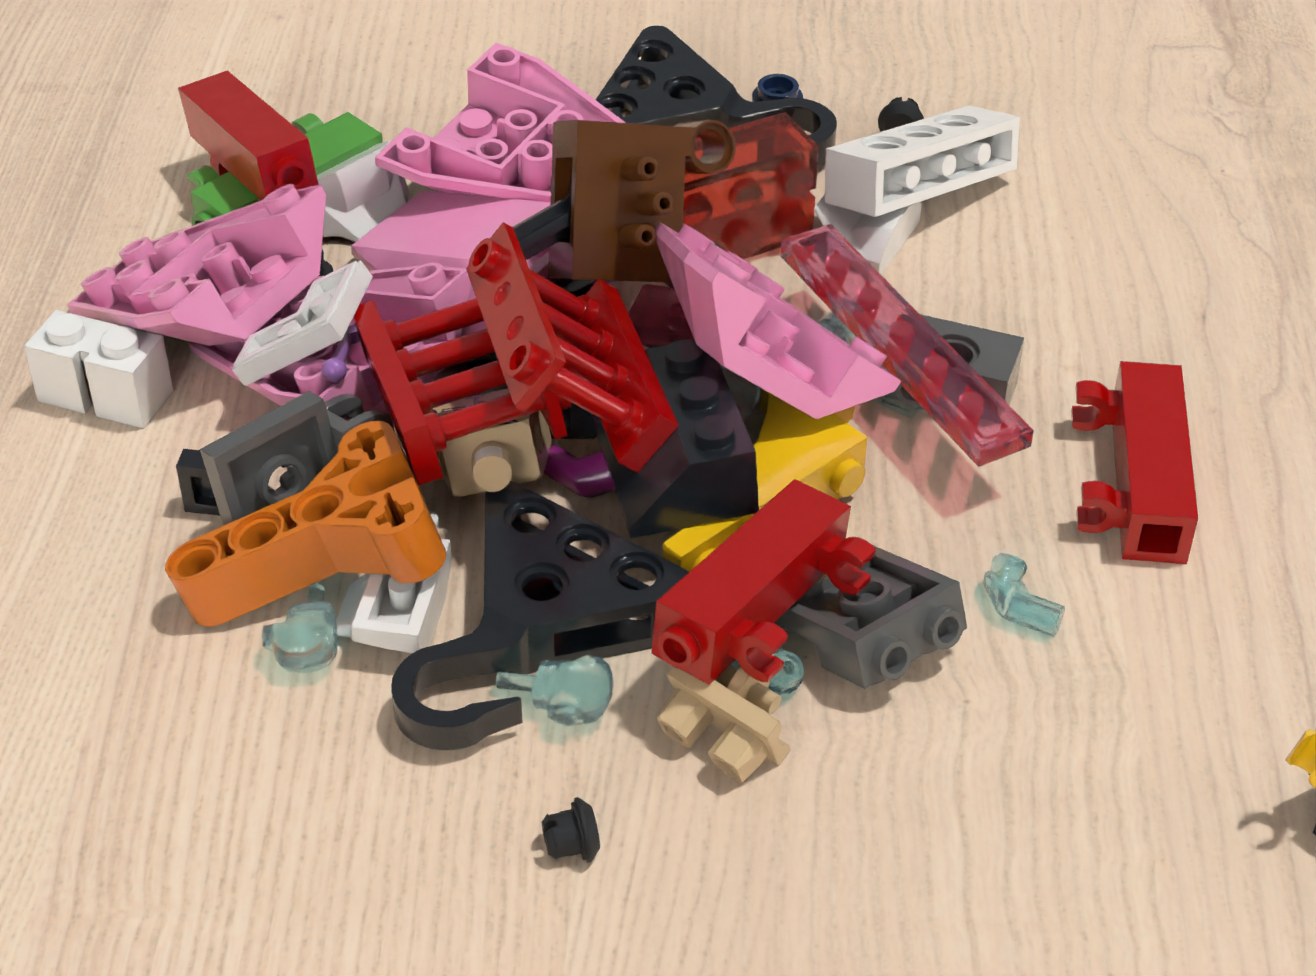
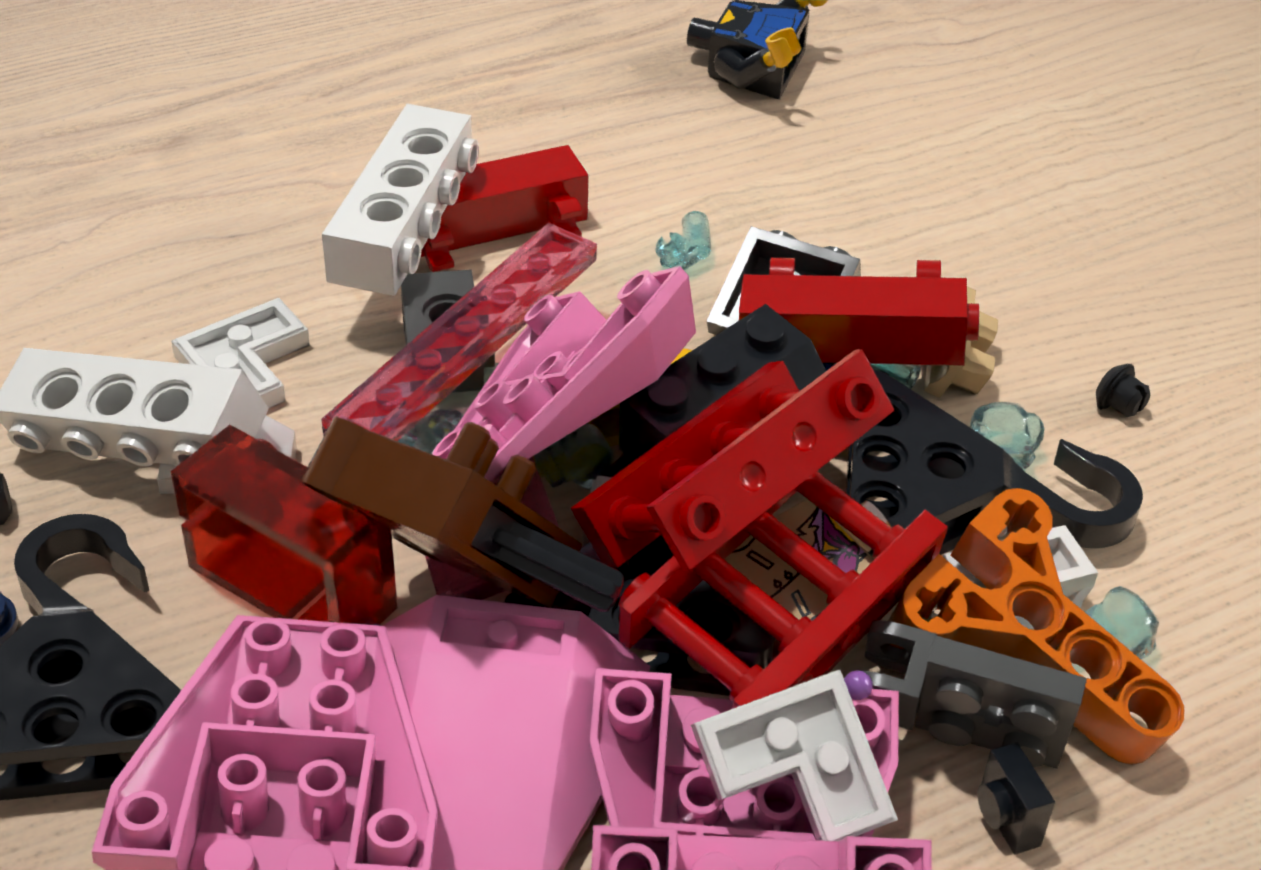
camera: 120 degrees left, 0 degrees up
(1013, 263) = (247, 344): none -> white tile
(1120, 340) = (399, 200): none -> white brick

